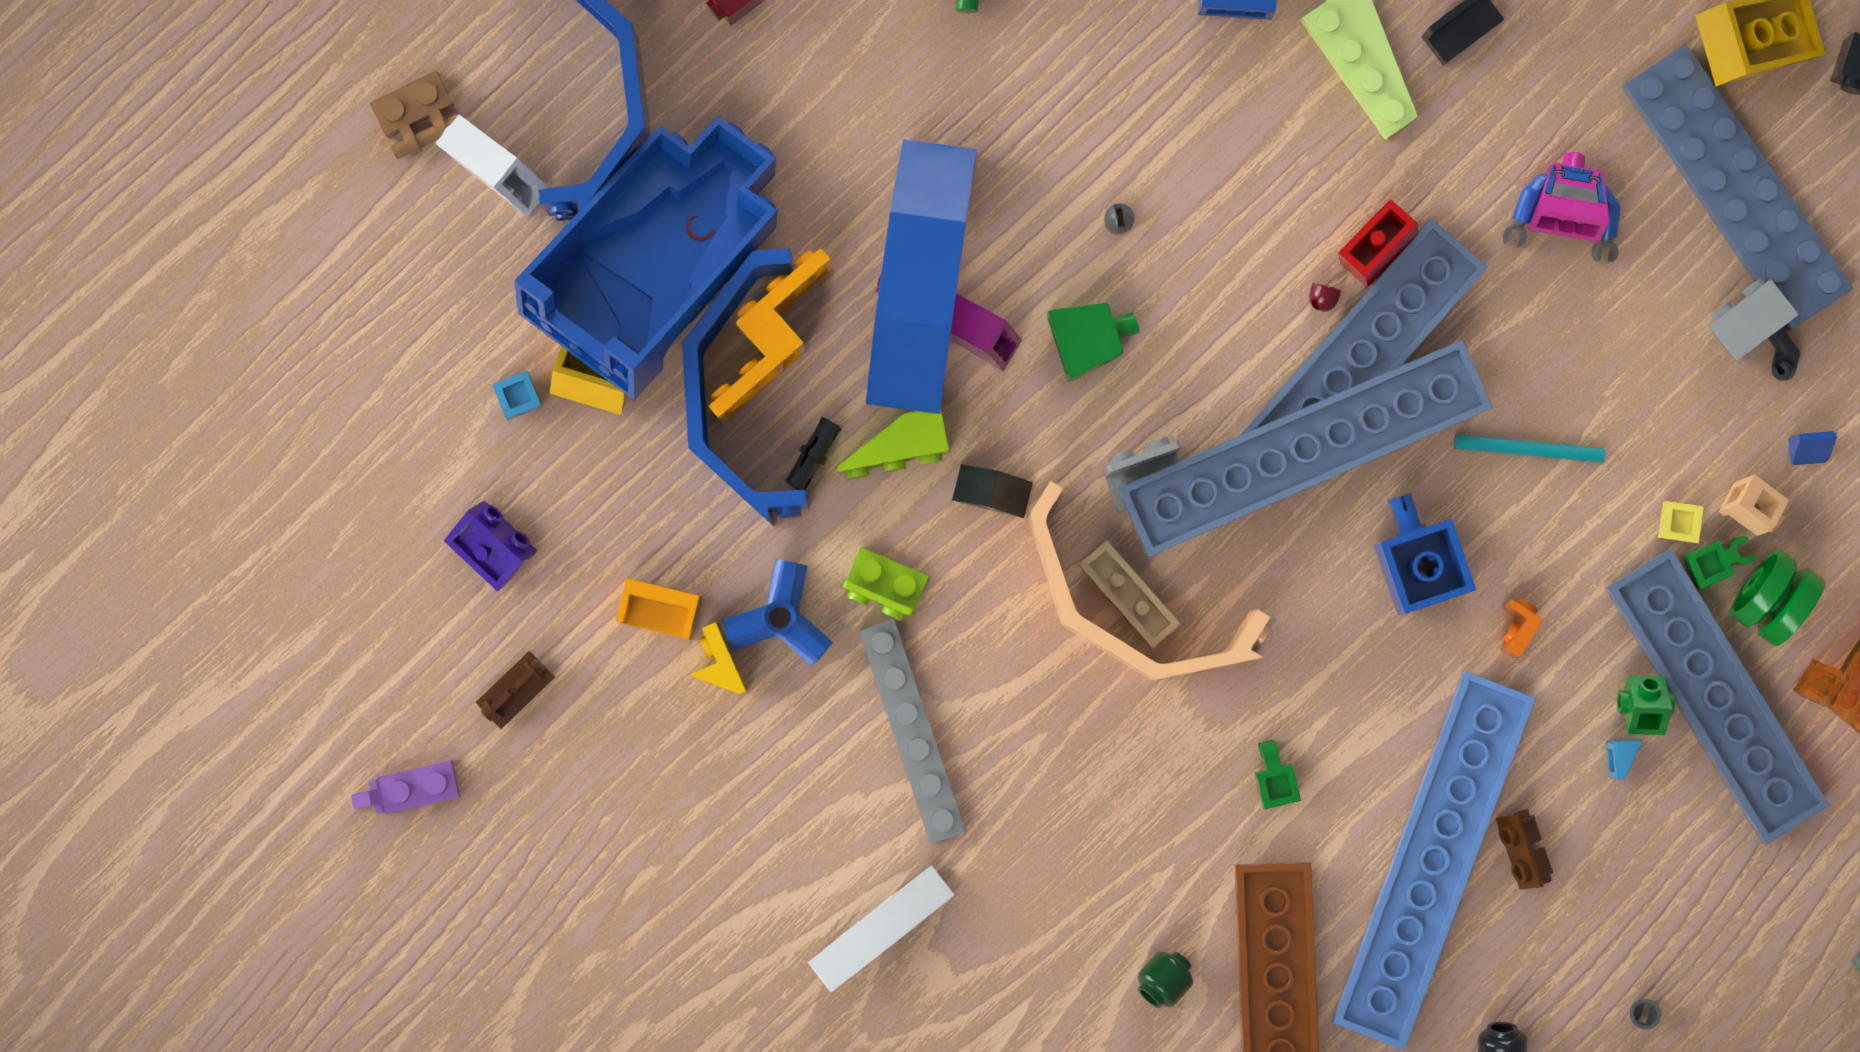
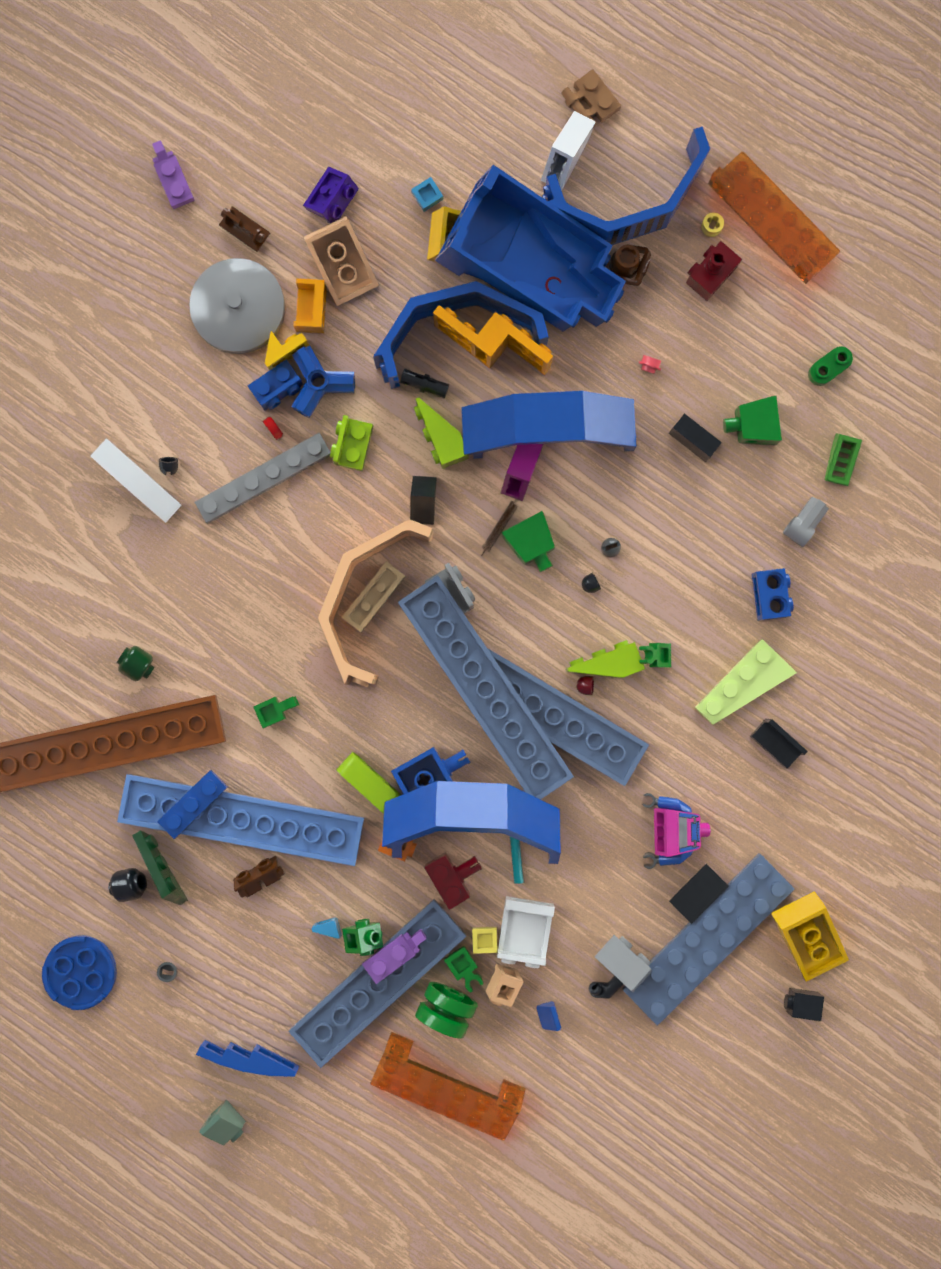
camera: 80 degrees right, 0 degrees up
(596, 547) = (341, 261): none -> light nougat slope
(634, 723) = (237, 305): none -> light grey dish
(684, 107) = (627, 263): none -> reddish brown piece
(771, 685) = (276, 385): none -> blue bracket
(839, 701) = (273, 428): none -> red tile
(849, 104) = (650, 364): none -> coral plate
(864, 874) = (168, 464): none -> black hinge
(975, 58) = (695, 438): none -> black panel
(1071, 391) = (501, 522): none -> reddish brown piece
(1170, 260) = (590, 583): none -> black hinge
(1299, 180) = (657, 655): none -> green plate
(1299, 243) = (616, 663): none -> lime slope
(1378, 243) = (626, 712): red brick -> none
(1398, 928) = (192, 804): none -> blue plate
(1414, 652) = (367, 781): none -> lime beam
(1485, 997) = (158, 868): none -> dark green wing
(1491, 503) = (472, 809): none -> blue panel
(1580, 556) = (450, 879): none -> dark red brick
(1668, 187) = (698, 893): none -> black piece
(1678, 459) = (525, 931): none -> white panel
(1681, 662) = (393, 955): none -> medium lavender hinge
(1804, 899) = (259, 1061): none -> blue slope

